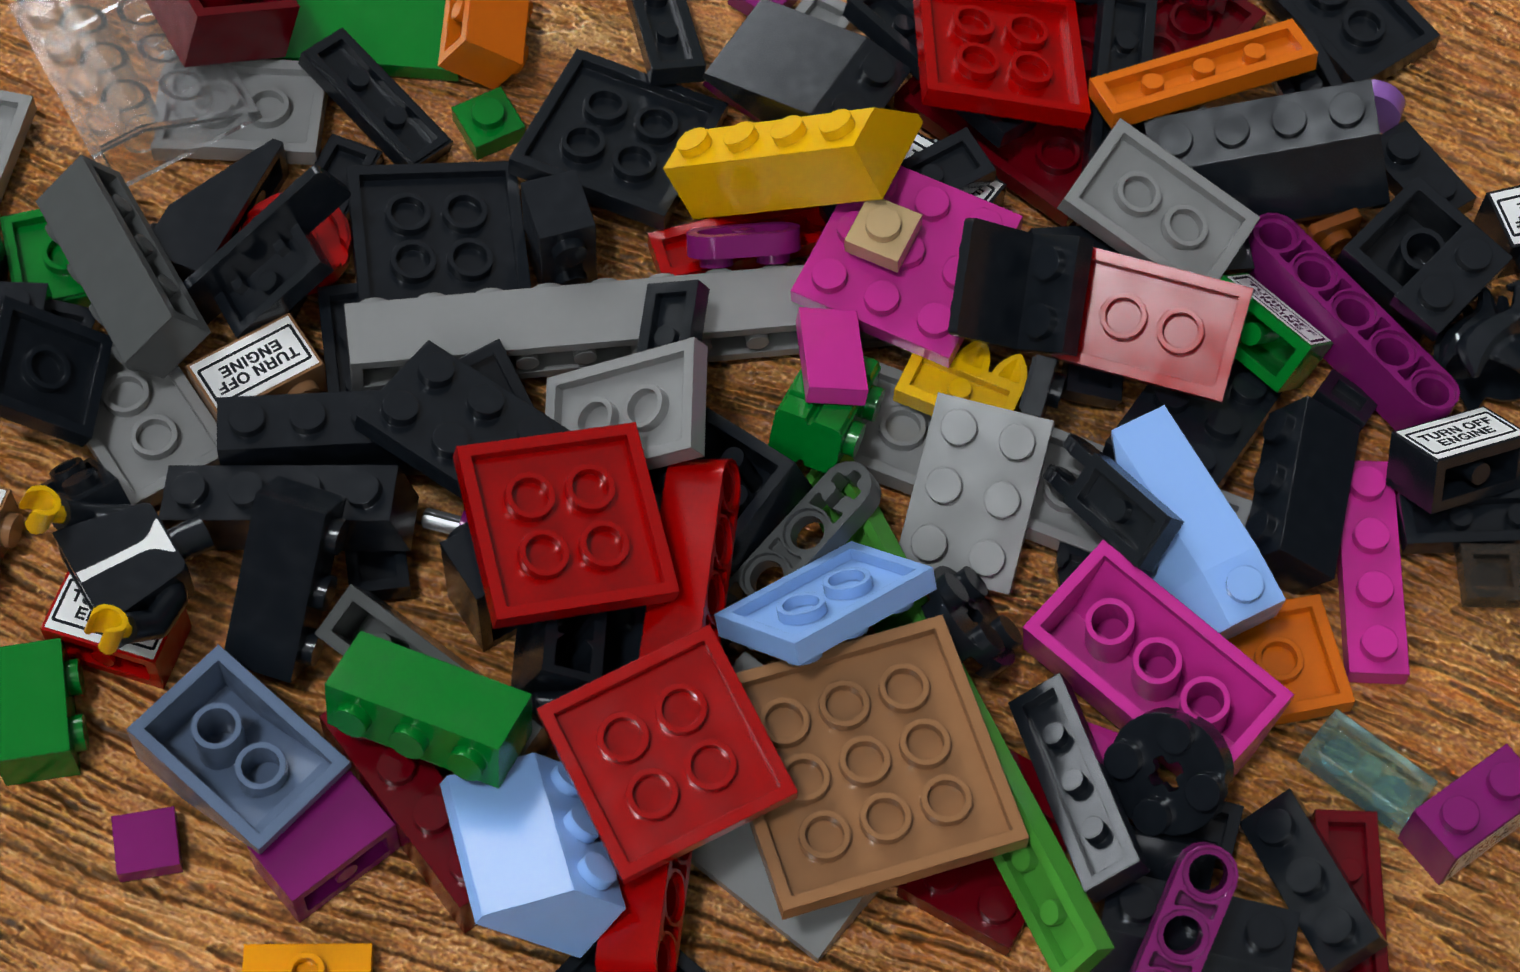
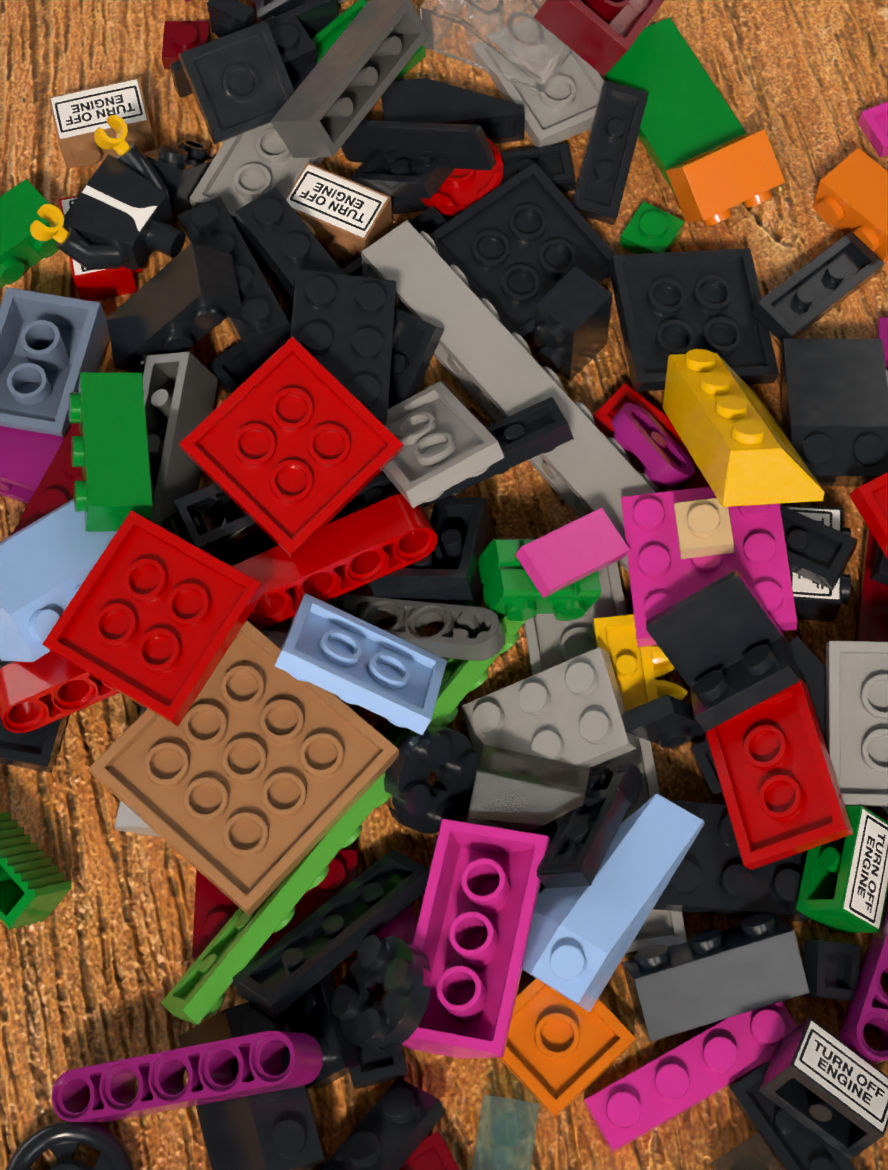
camera: 65 degrees right, 5 degrees up
(1035, 543) = (524, 790): none -> clear smoke slope

